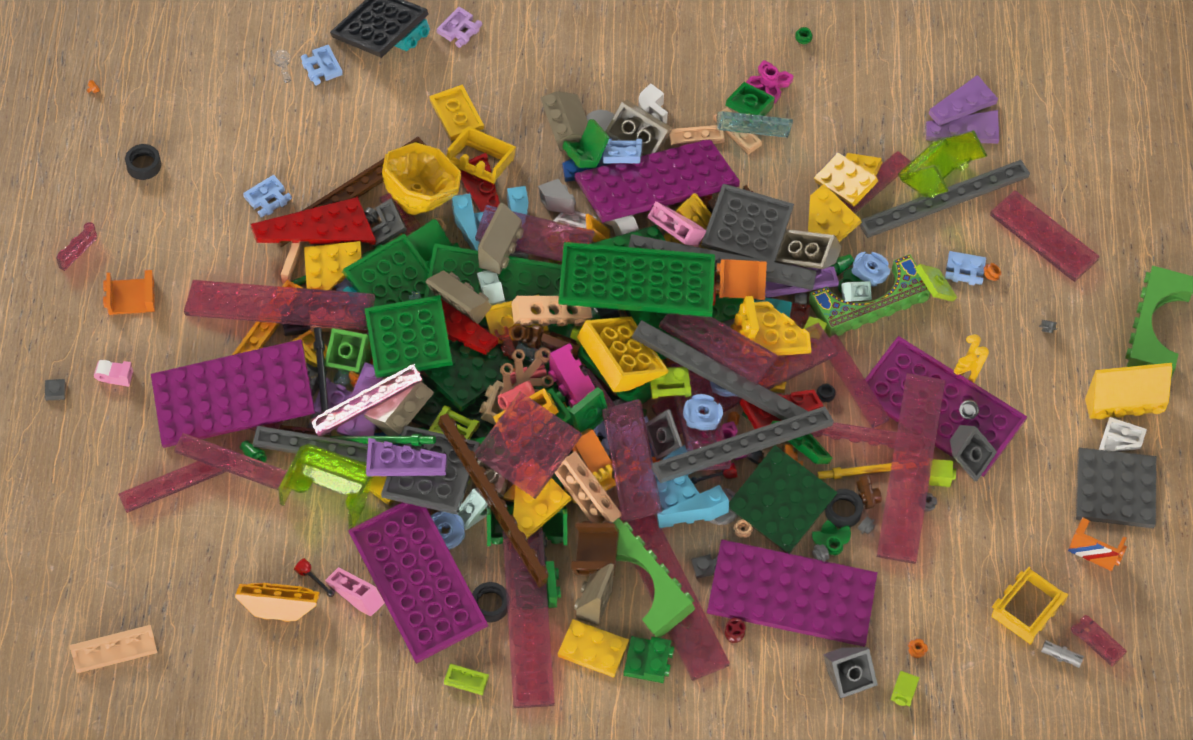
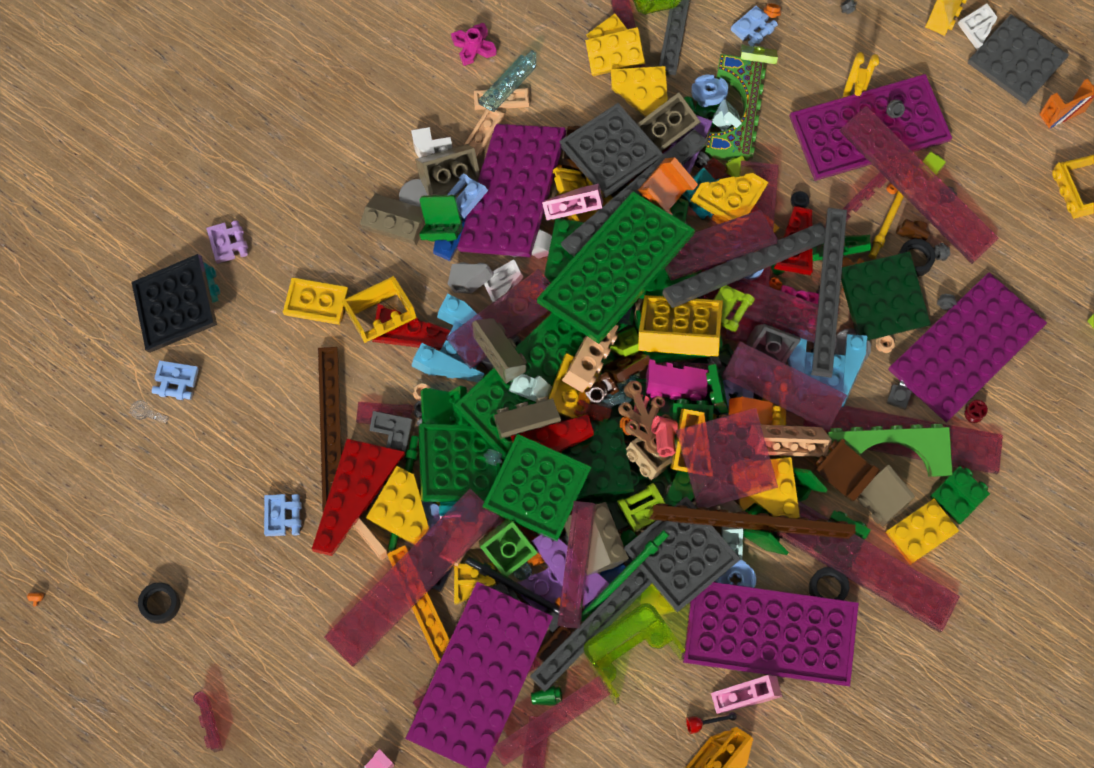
camera: 55 degrees left, 10 degrees up
(129, 295) = (297, 704): orange panel -> none
(371, 215) = (370, 438): dark grey plate -> none
(394, 460) = (657, 578): medium lavender wing -> none
(420, 177) = (375, 372): yellow rock -> none
(466, 679) = (891, 654): lime plate -> none
(601, 232) = (529, 265): light orange slope -> none
(700, 421) = (773, 310): light blue plate -> none
(746, 319) = (709, 211): yellow plate -> none
(750, 100) = (486, 69): green plate -> none
(832, 536) = (933, 282): green plate -> none
(850, 670) = (1064, 350): dark grey slope -> none
(857, 385) = (817, 172): clear pink plate -> none
(917, 653) = (1069, 292): orange plate -> none
(971, 450) = (931, 131): dark grey slope -> none

